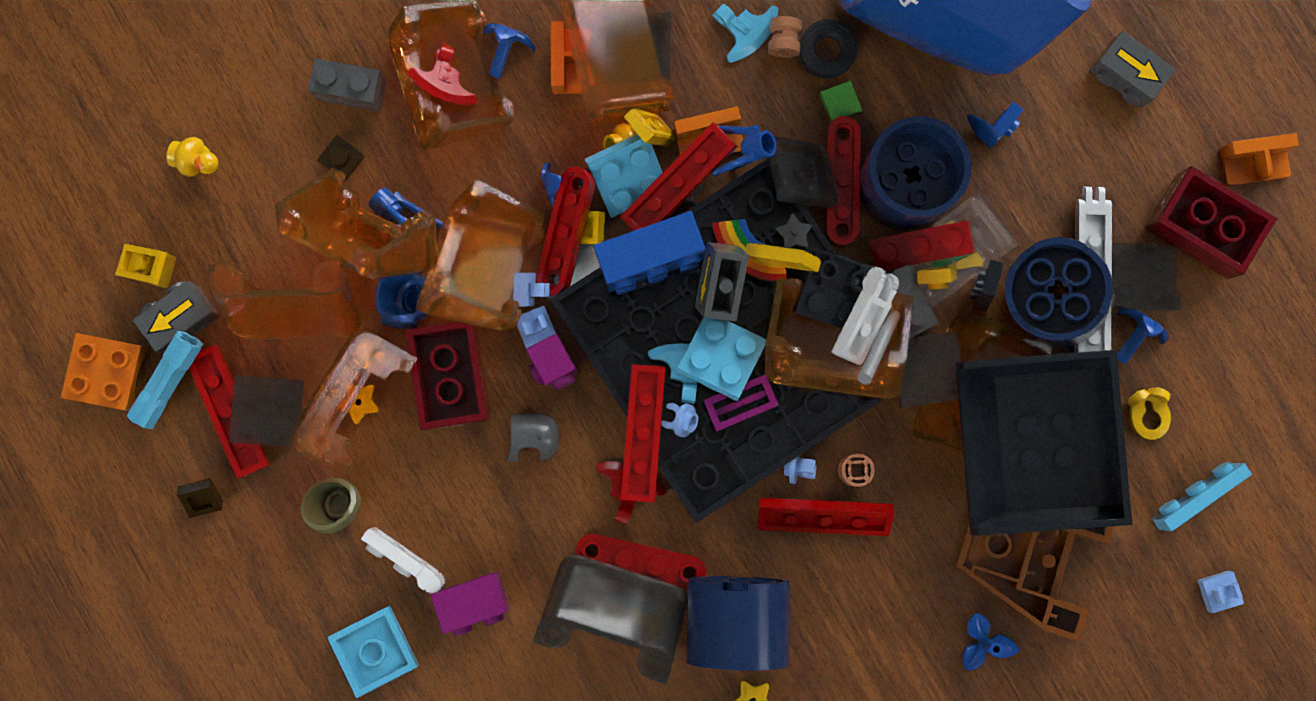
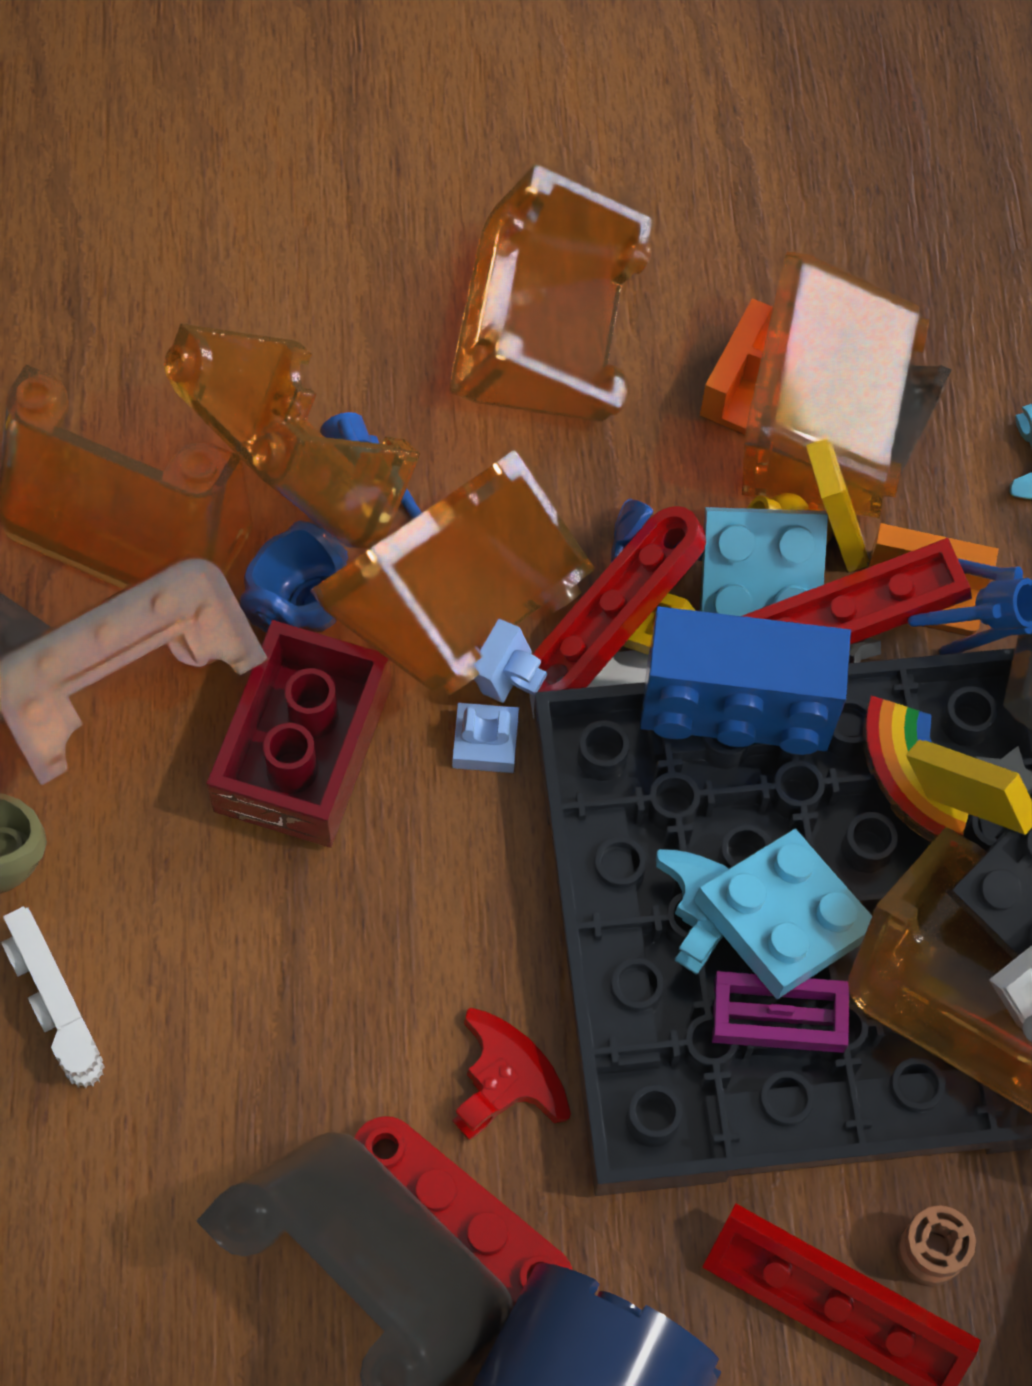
camera: 30 degrees right, 20 degrees down
(191, 157) = (91, 243): yellow animal -> none
(341, 157) = (328, 349): dark brown plate -> none
(347, 85) = (387, 252): dark grey brick -> none
(367, 404) = (134, 727): yellow plate -> none
(442, 80) = (537, 307): red piece -> none
(471, 603) = (124, 1126): magenta brick -> none
(505, 37) = (672, 296): blue plant -> none
(533, 431) = (389, 893): dark grey helmet -> none
(552, 363) = (485, 791): magenta brick -> none
(643, 433) = (581, 977): red plate -> none
(685, 420) = (667, 986): light blue plate -> none
(721, 281) = (846, 781): dark grey brick -> none
(800, 467) = (834, 1190): light blue plate -> none

